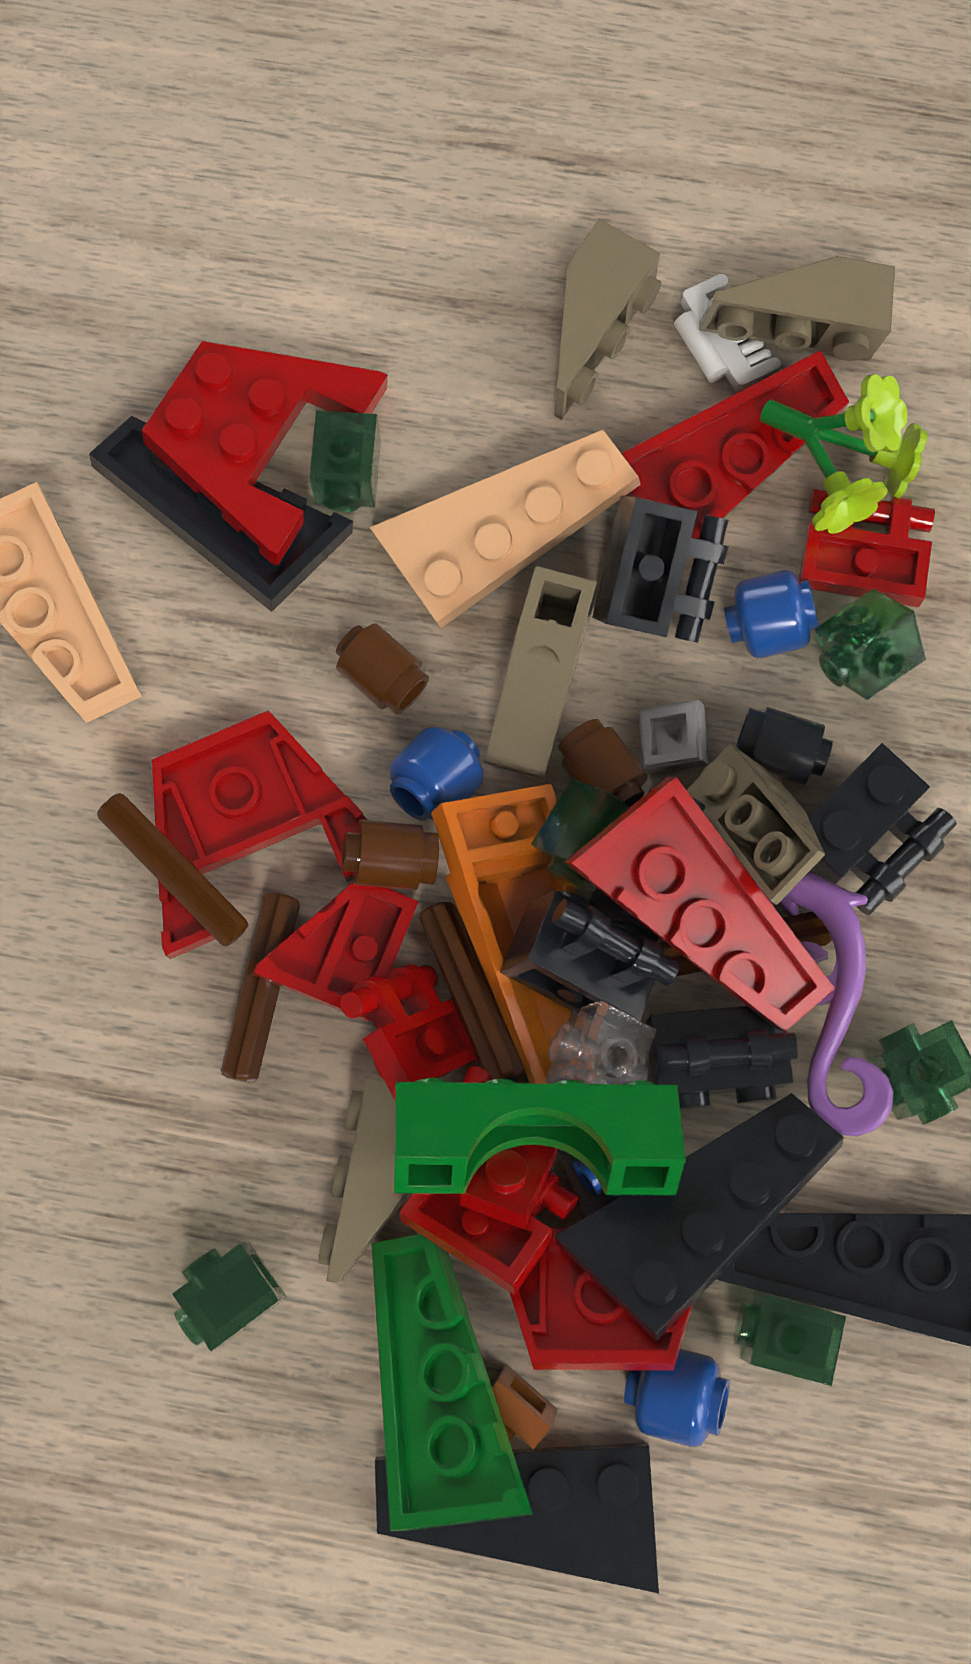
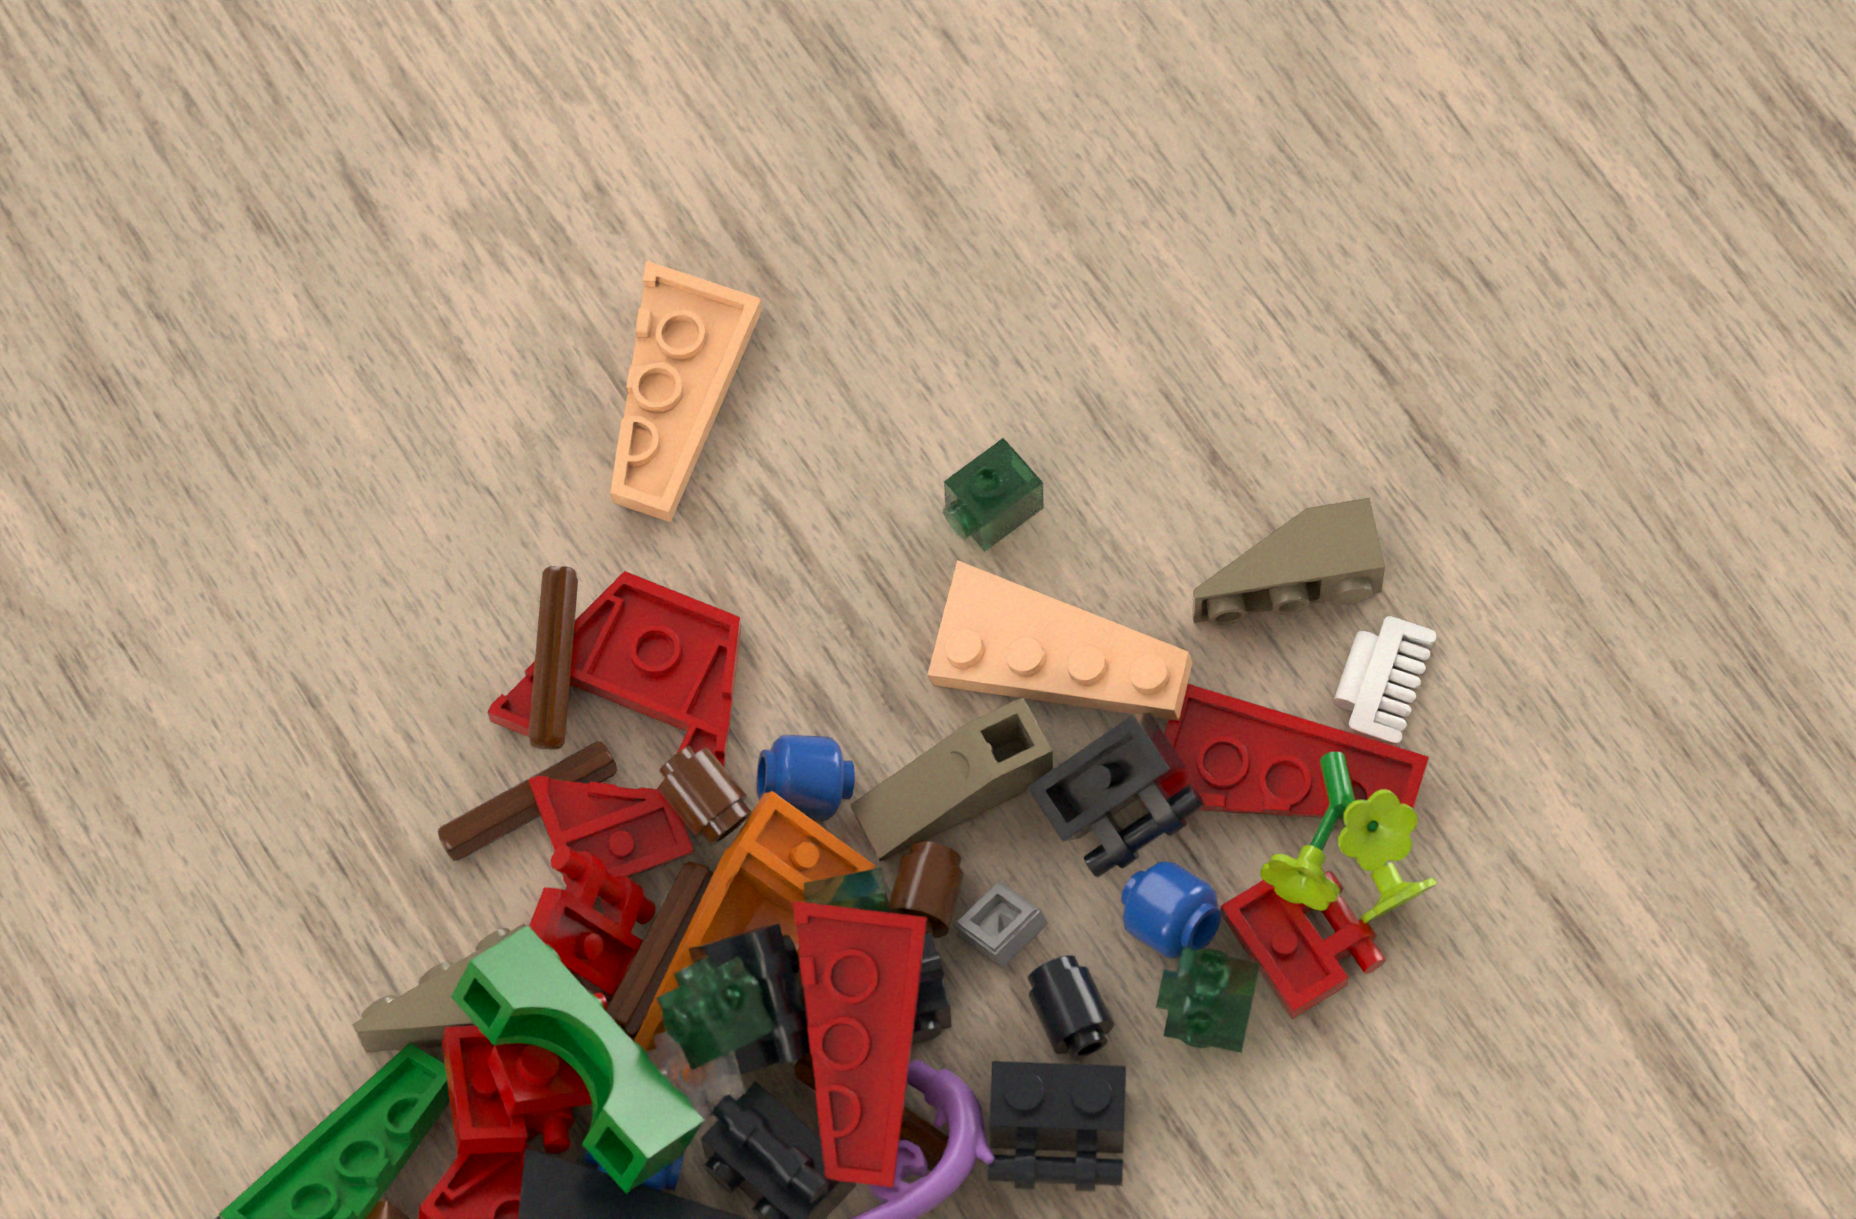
camera: 50 degrees right, 10 degrees down
(200, 523) = (868, 452): black wing -> none
(225, 1295) = (282, 974): clear green brick -> none
(230, 418) = (950, 384): red wing -> none
(381, 668) = (850, 667): reddish brown brick -> none
(596, 1000) = (714, 1010): none -> clear green brick
(758, 821) = (975, 1017): dark tan slope -> none
(822, 306) = (1468, 723): dark tan slope -> none

